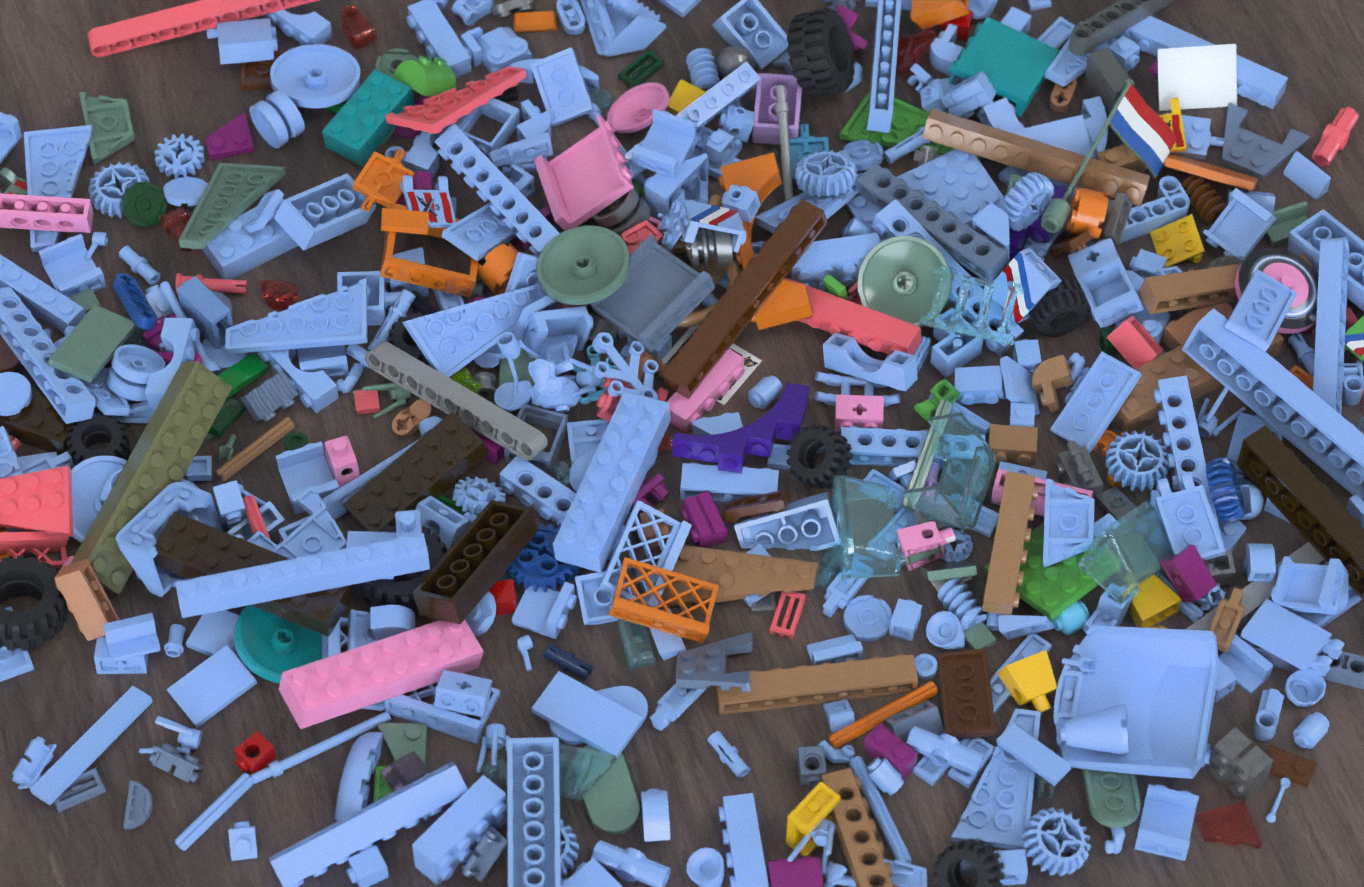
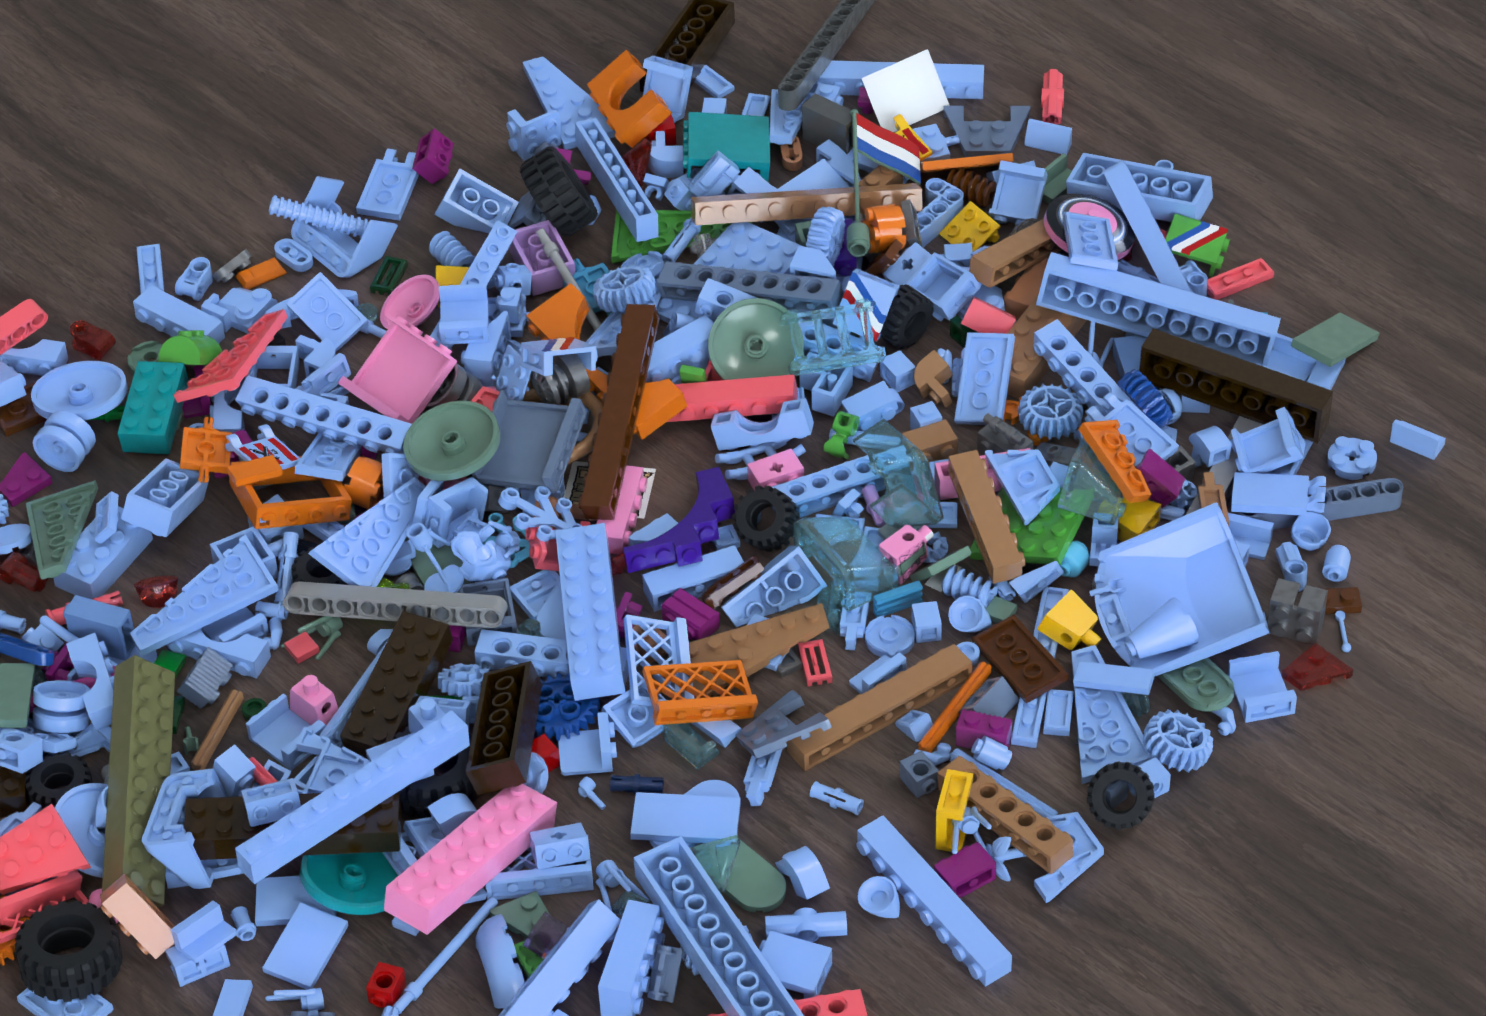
camera: 25 degrees left, 10 degrees down
(235, 548) = (270, 801): none -> light blue bracket
(407, 421) = (355, 644): nougat piece -> none
(732, 58) = (474, 233): flat silver cap -> none
(743, 200) = (568, 327): light blue brick -> none
(764, 392) = (677, 490): light blue brick -> none
(893, 586) = (897, 599): none -> dark azure tile
(927, 454) = (863, 481): sand green axle -> none
(945, 750) = (1034, 709): light blue piece -> none
(1018, 383) = (902, 389): light blue tile -> none
(1154, 532) = (1112, 453): none -> orange wing

